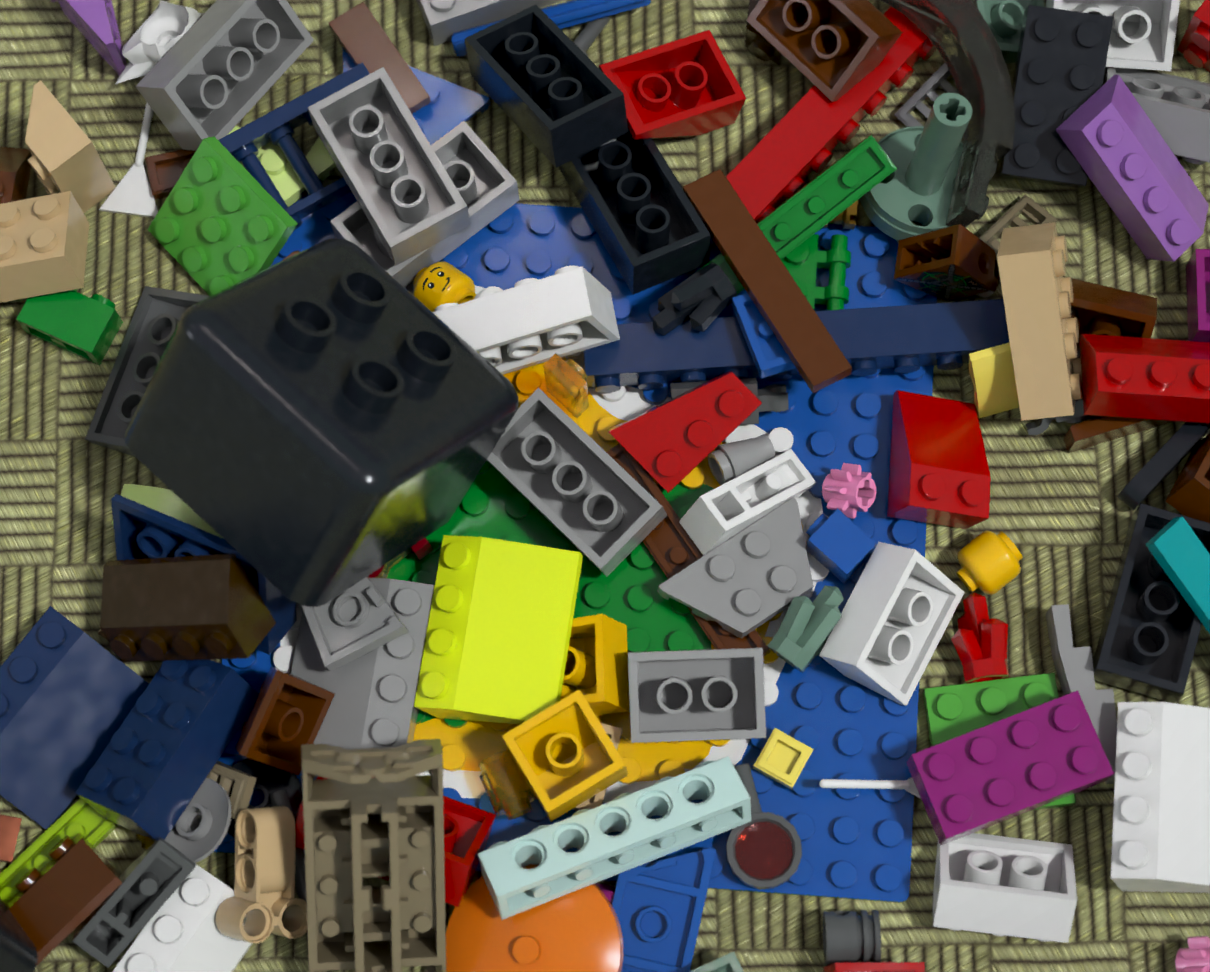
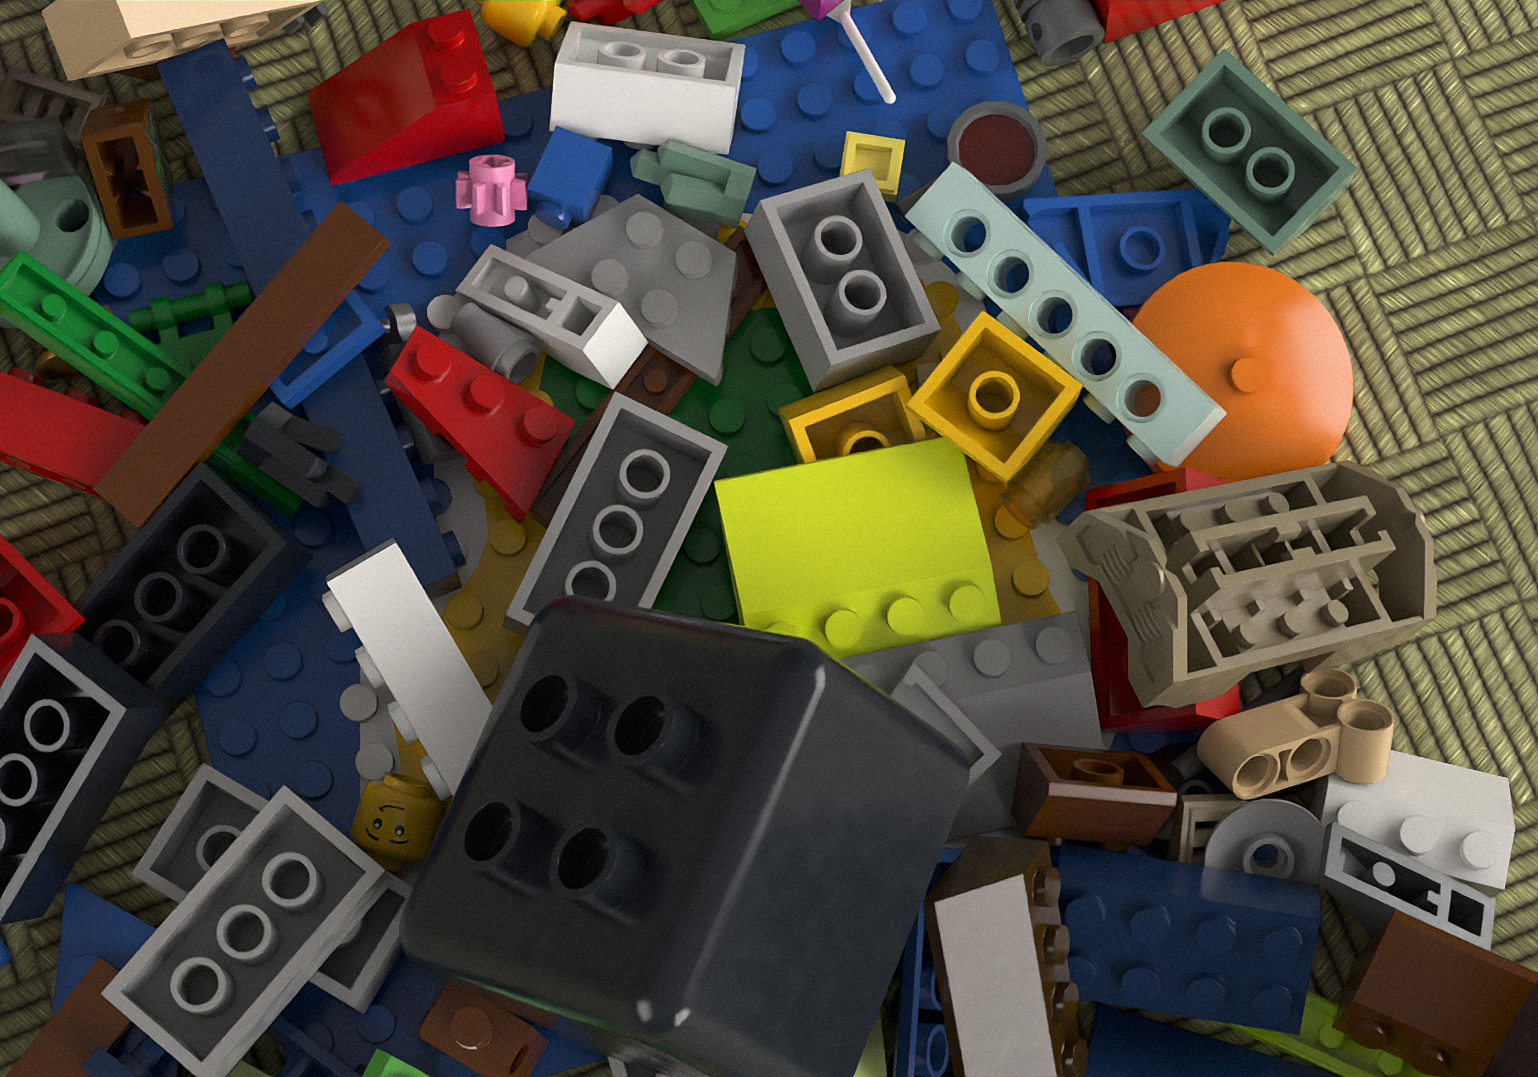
camera: 120 degrees left, 0 degrees up
(567, 384) = (479, 589): clear yellow plate -> none
(993, 380) = (273, 58): light yellow slope -> none

